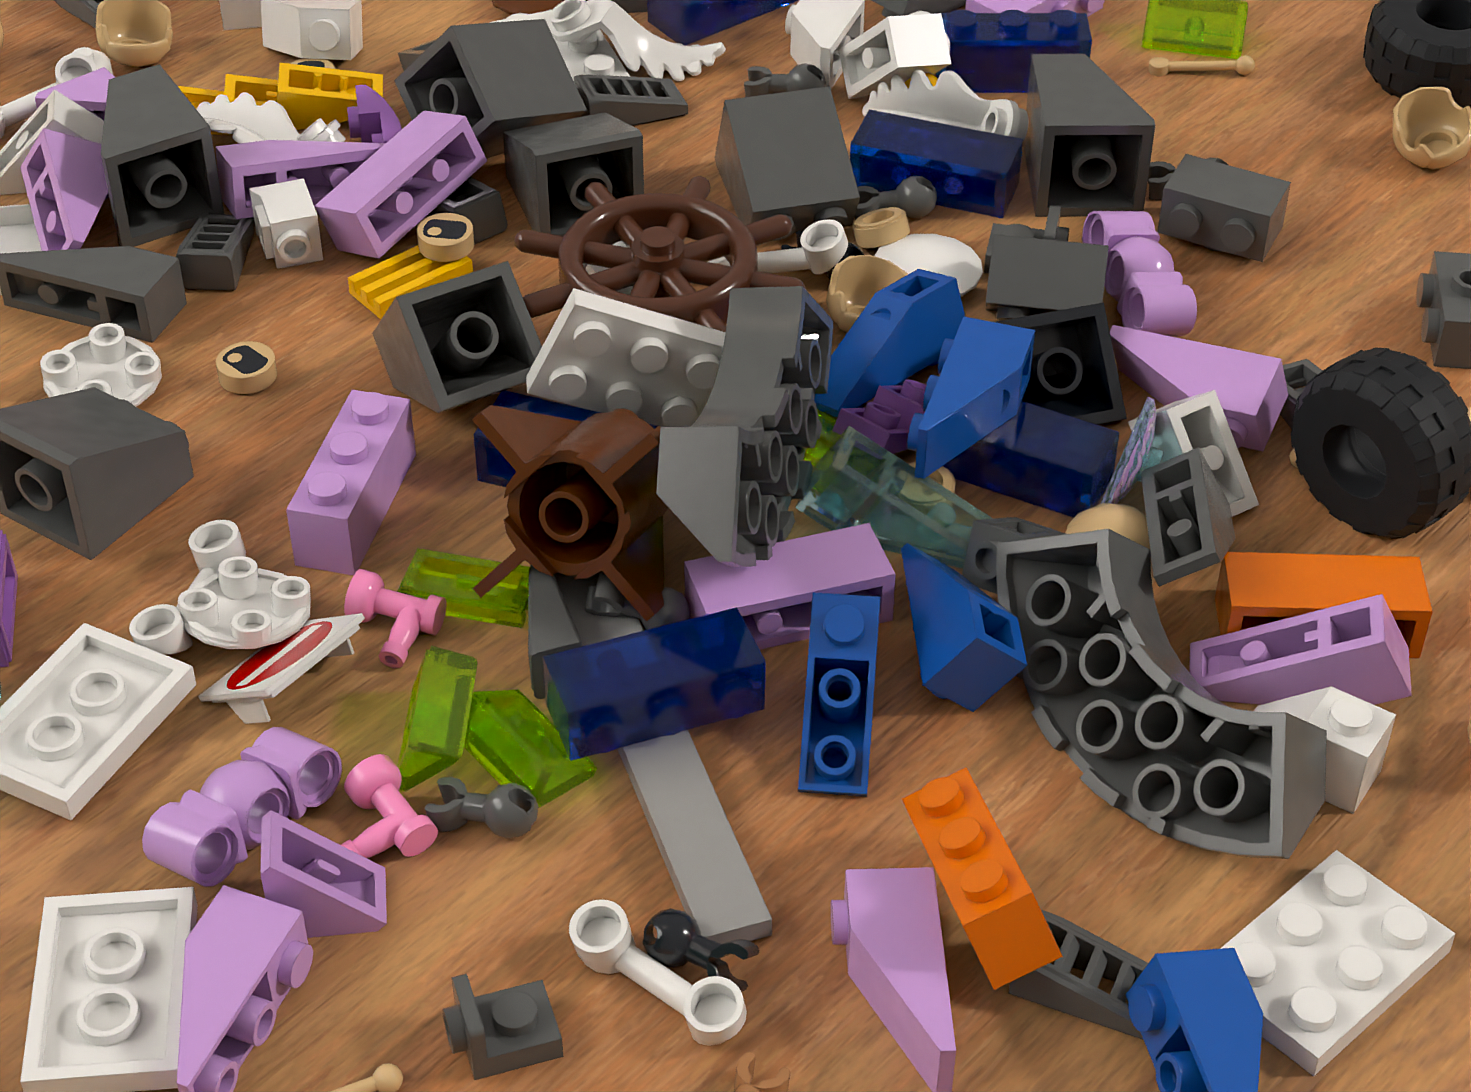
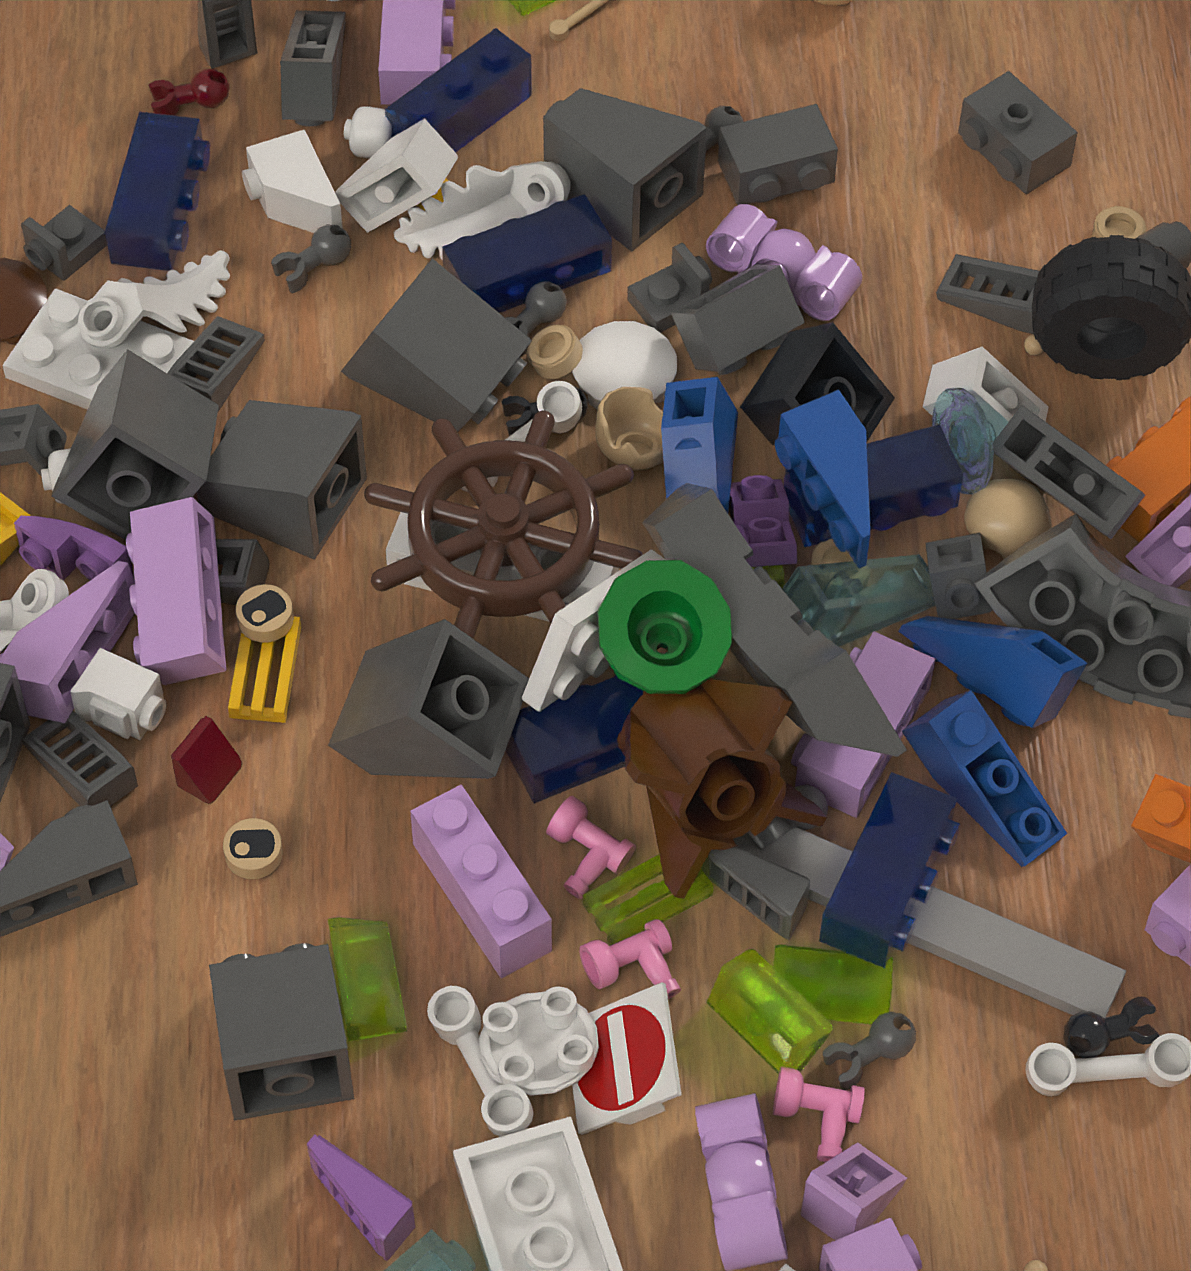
camera: 45 degrees left, 15 degrees up
(103, 361) = (157, 945): white dish -> none
(196, 485) = (366, 978): none -> clear neon green slope
(287, 293) = (205, 761): none -> dark red slope
(474, 497) = (605, 850): none -> bright pink piece
(502, 1027) = (1062, 1179): dark grey bracket -> none
(657, 362) = (670, 609): none -> green hat
(1174, 368) = (933, 331): lavender slope -> none

